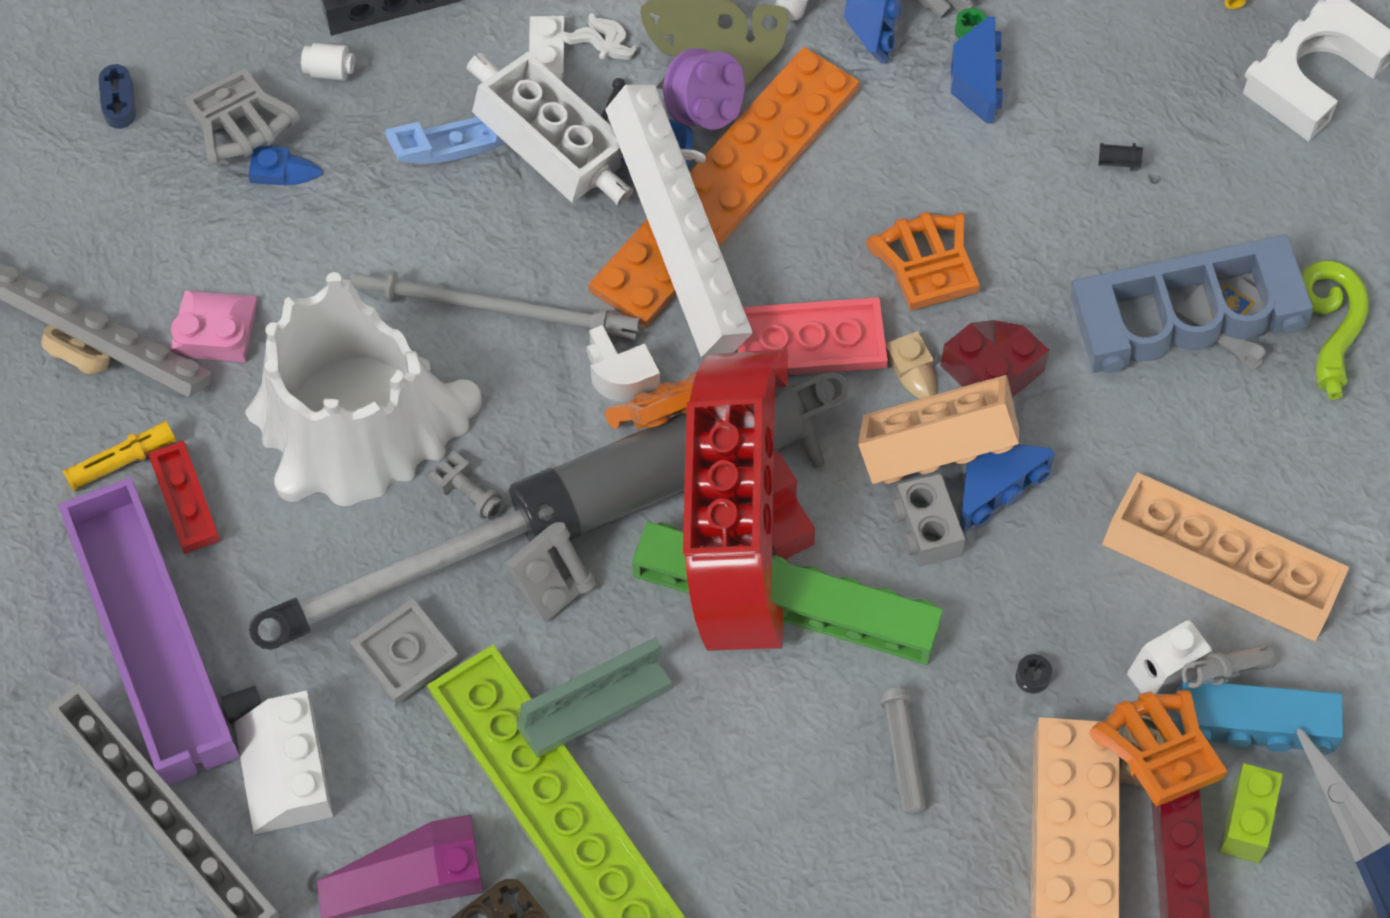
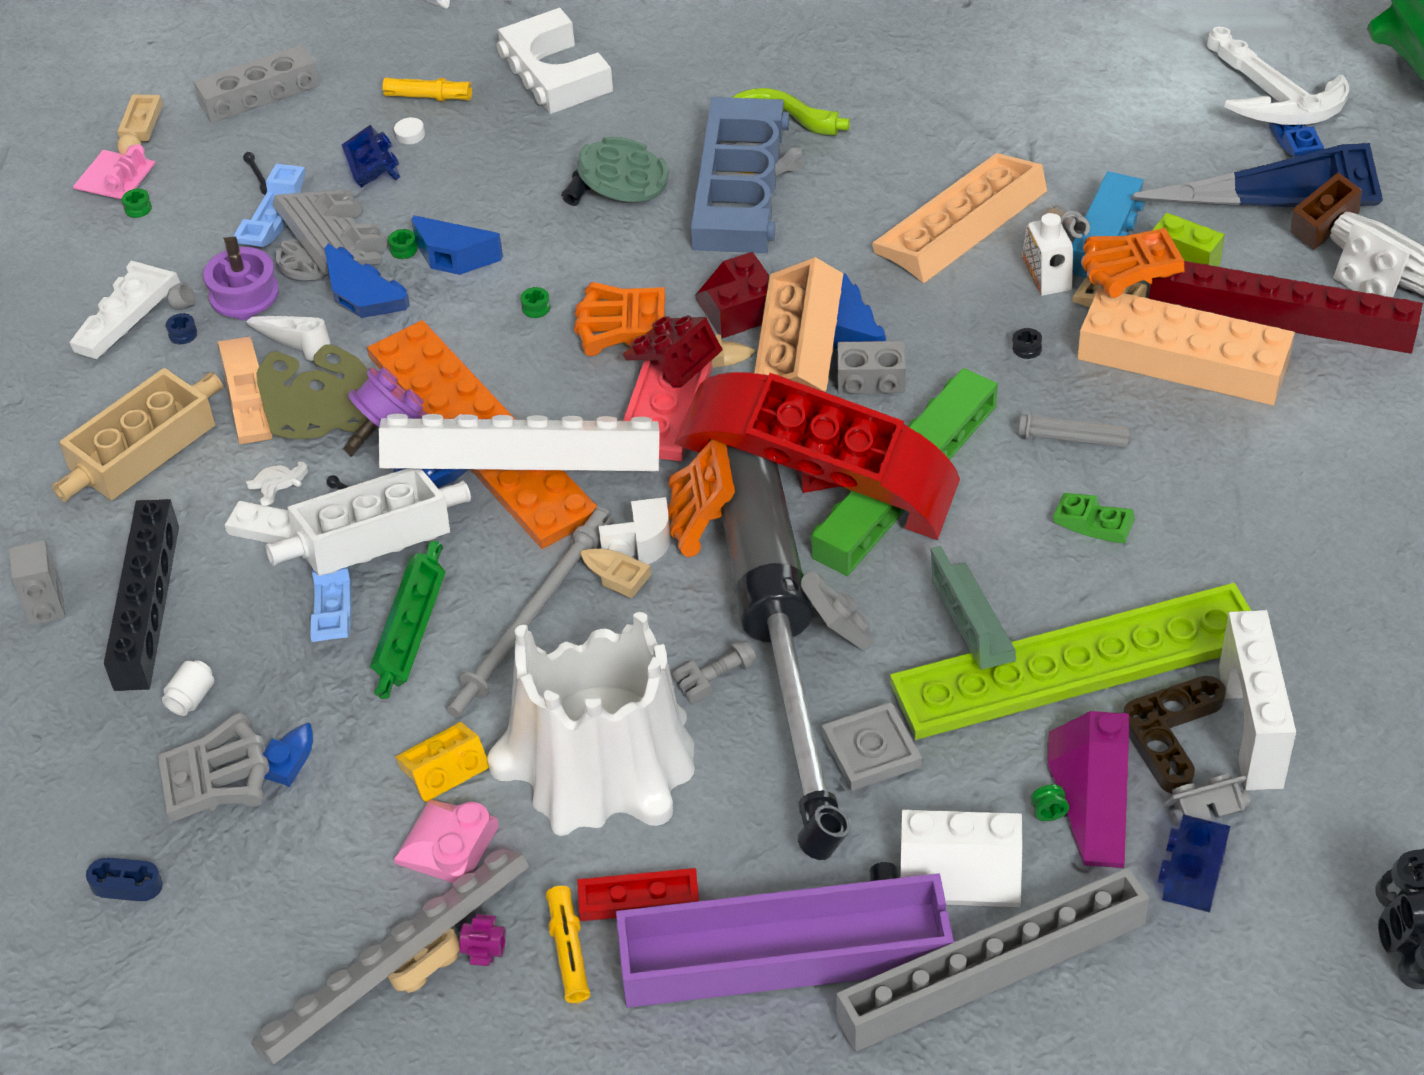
camera: 70 degrees left, 15 degrees down
(103, 386) = (482, 940): none -> magenta gear
(288, 278) = (444, 761): none -> yellow bracket
(372, 831) = (1049, 802): none -> green bush
(454, 205) = (408, 619): none -> green plate
(566, 361) = (617, 570): none -> tan plate
(780, 799) = (1085, 516): none -> bright green slope
(874, 319) = (679, 345): none -> dark red bracket
(917, 178) = (535, 302): none -> green bush
(1159, 189) = (622, 169): none -> sand green tile

